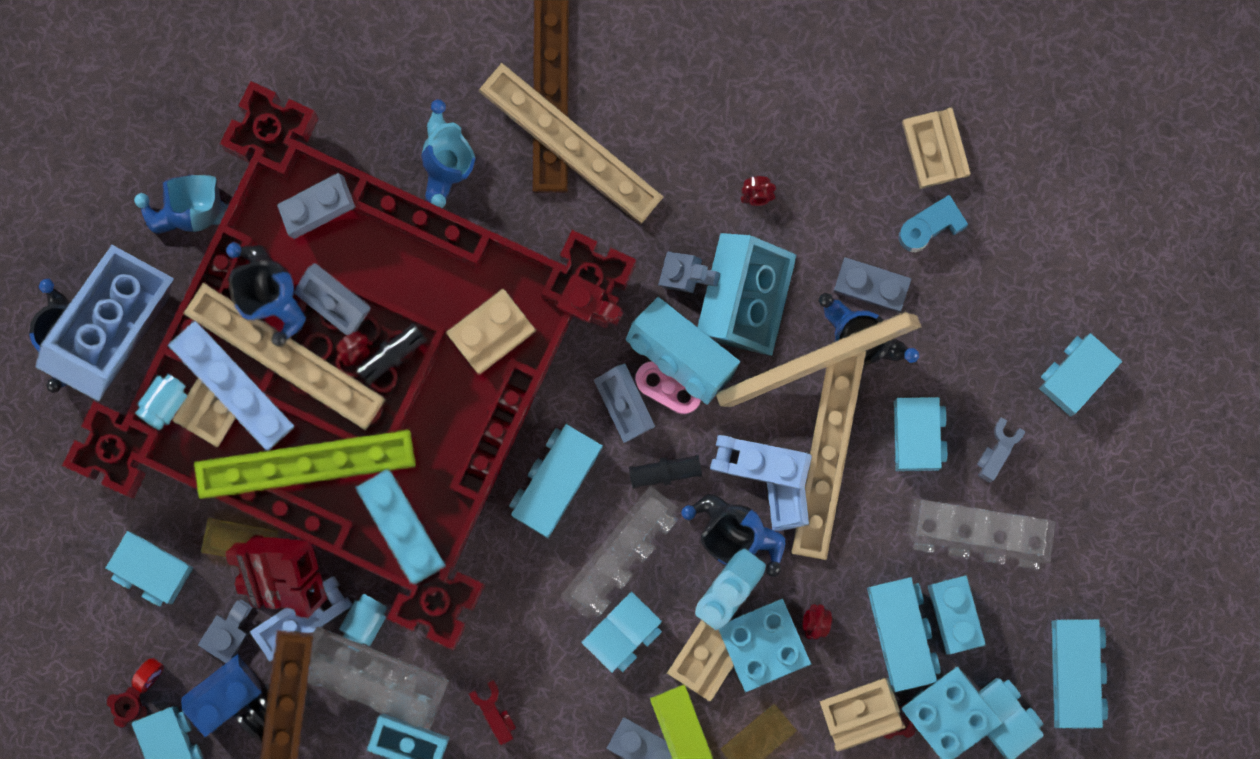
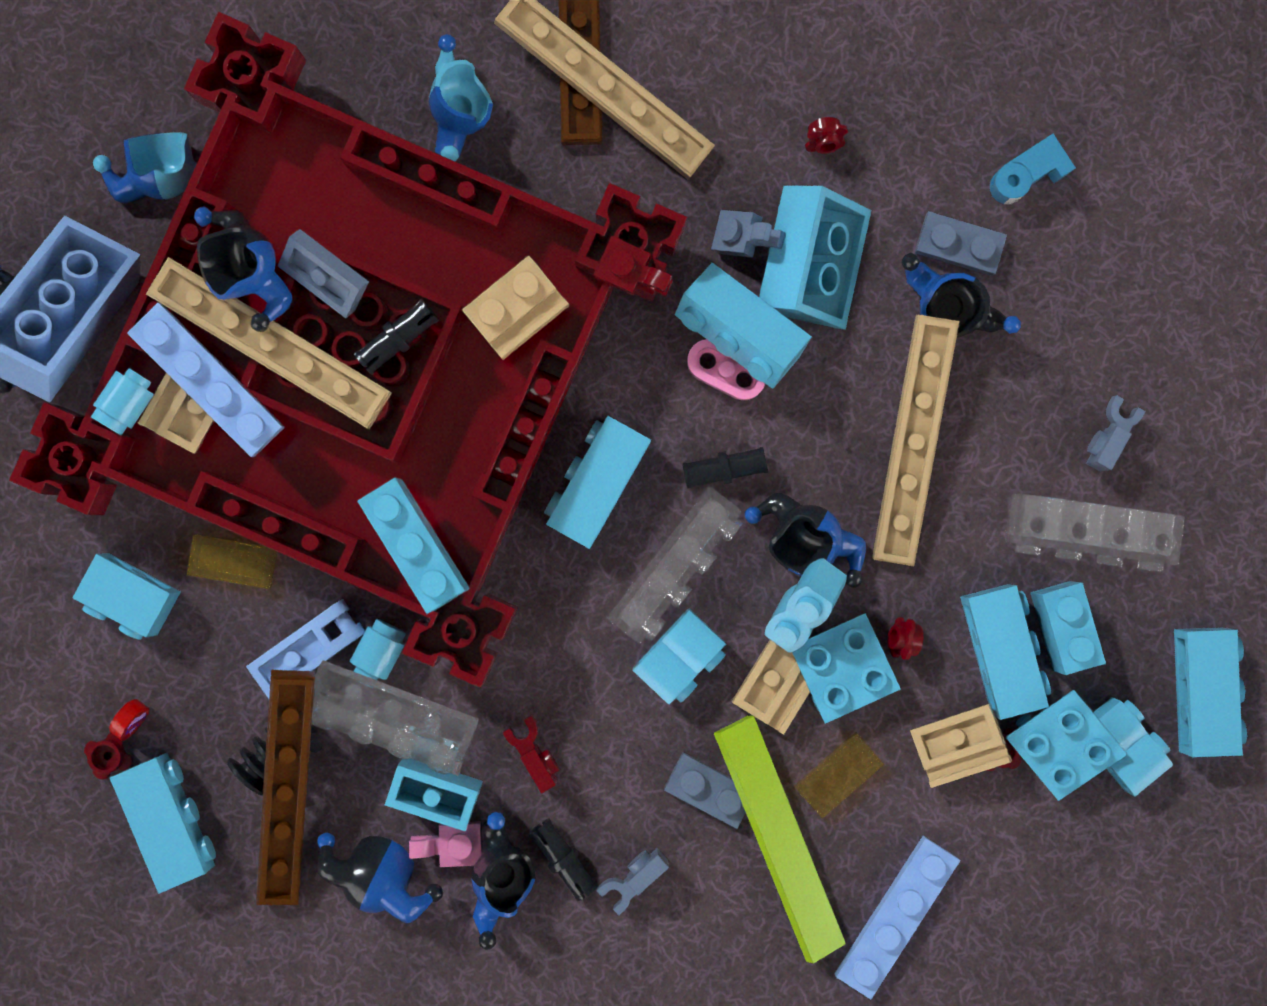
camera: 10 degrees left, 5 degrees up
(221, 695) = (214, 742): blue brick -> none
(225, 635) = (219, 669): sand blue plate -> none
(275, 576) = (271, 603): dark red hips -> none
(304, 464) = (297, 472): lime tile -> none
(316, 206) = (302, 161): sand blue plate -> none
(354, 349) = (351, 332): dark red plate -> none
(624, 403) = (675, 388): sand blue plate -> none
(762, 462) = (839, 455): light blue plate -> none
(787, 507) = (867, 489): light blue tile -> none
(818, 359) = (907, 331): tan tile -> none
(918, 434) = (1020, 417): medium azure brick -> none
(936, 148) = (1033, 79): tan plate -> none
(1079, 374) = (1206, 342): medium azure brick -> none

